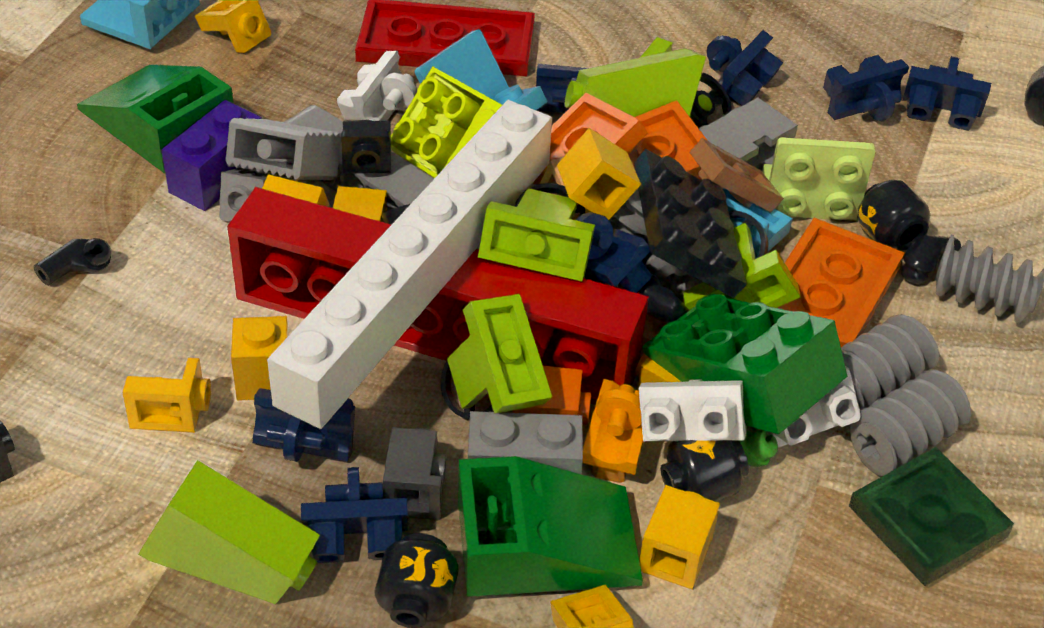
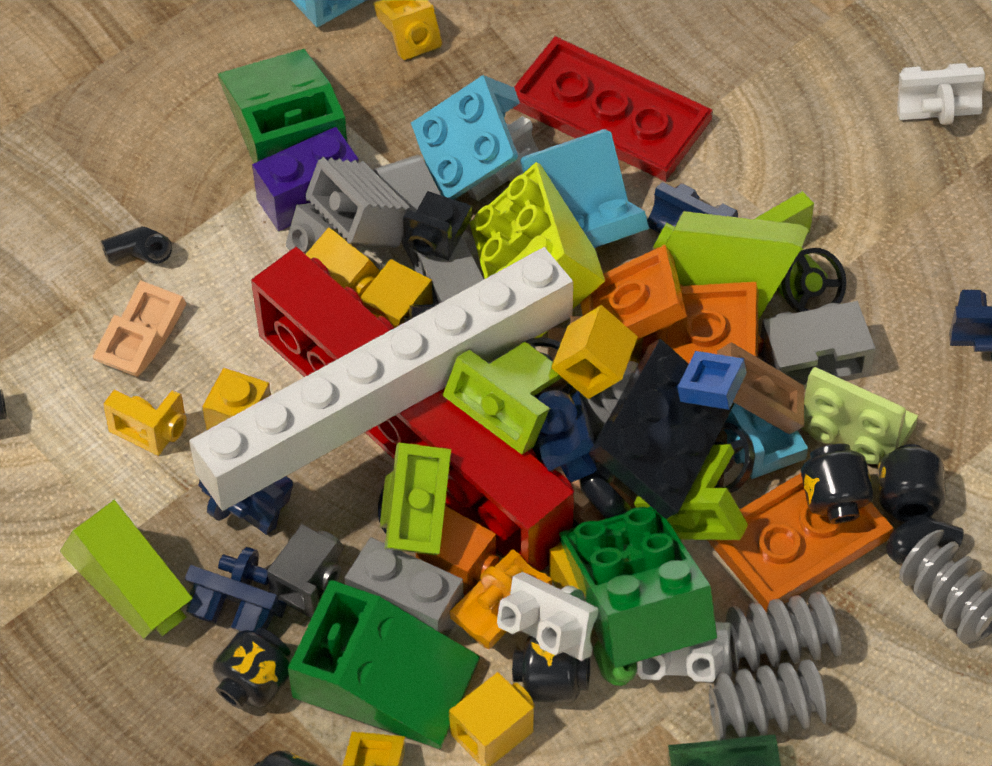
camera: 30 degrees right, 10 degrees up
(116, 326) = (142, 330): none -> light nougat slope
(352, 72) = (467, 136): none -> medium azure bracket
(715, 163) = (712, 380): none -> blue plate
(744, 69) = (900, 246): dark blue hips -> none
(846, 227) = (837, 483): none -> black head

